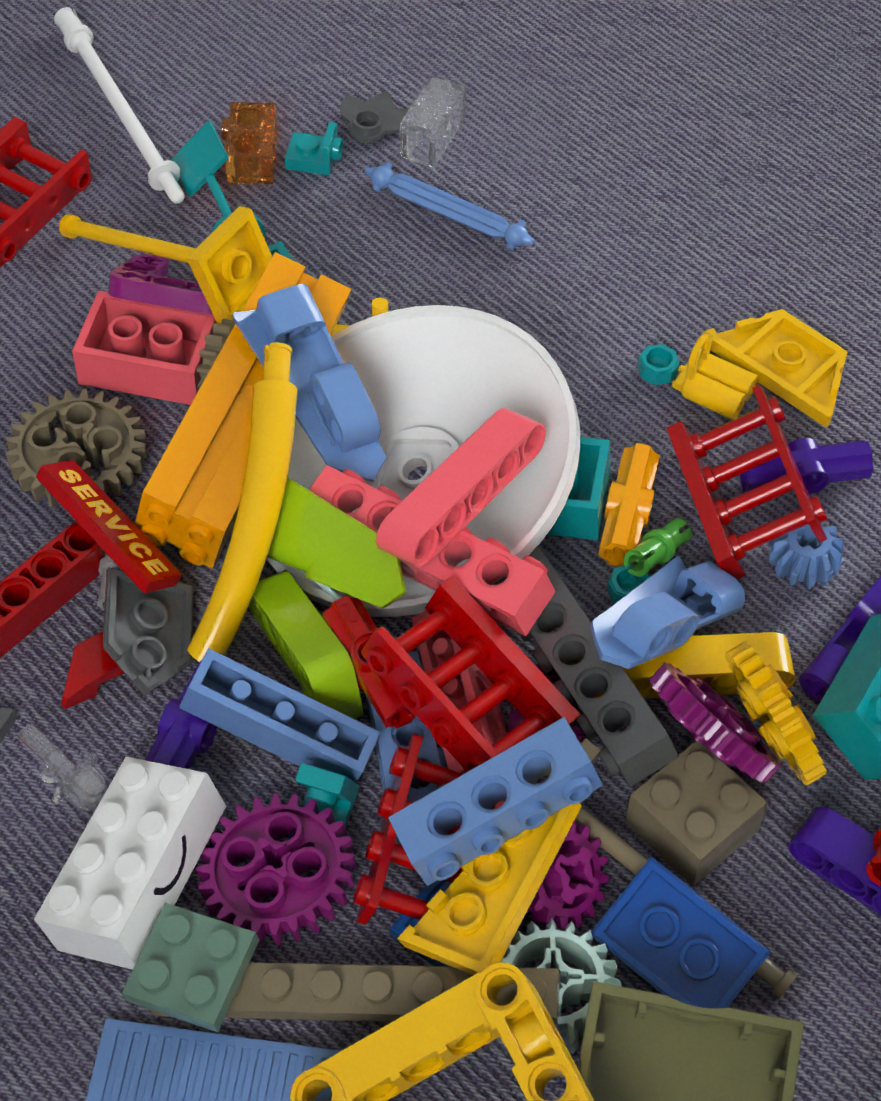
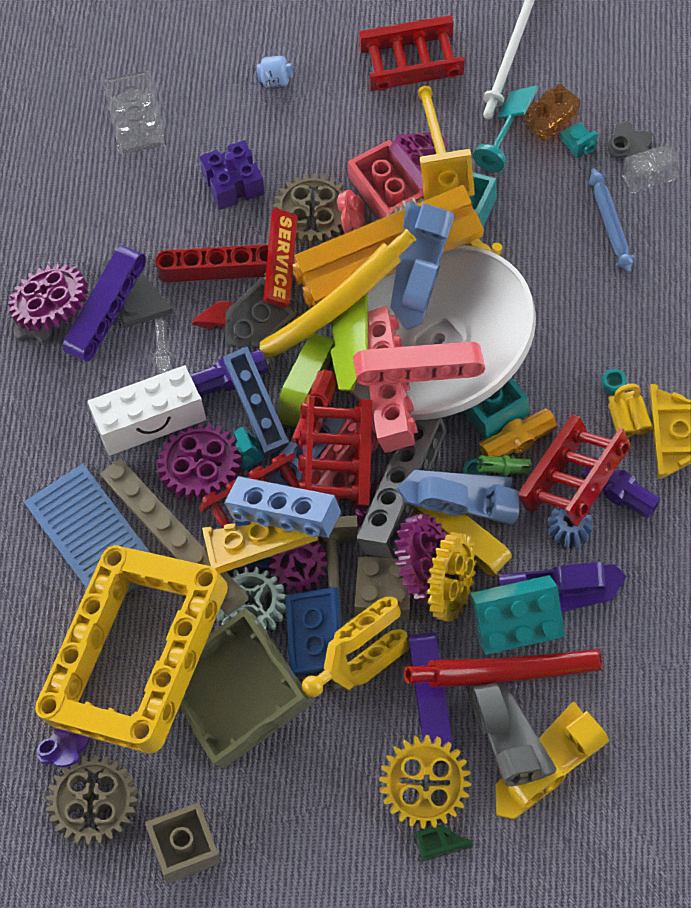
camera: 50 degrees right, 10 degrees up
(128, 401) = (352, 210): none -> coral plate
(191, 967) = (124, 470): sand green plate -> none
(774, 916) = (352, 637): none -> yellow piece

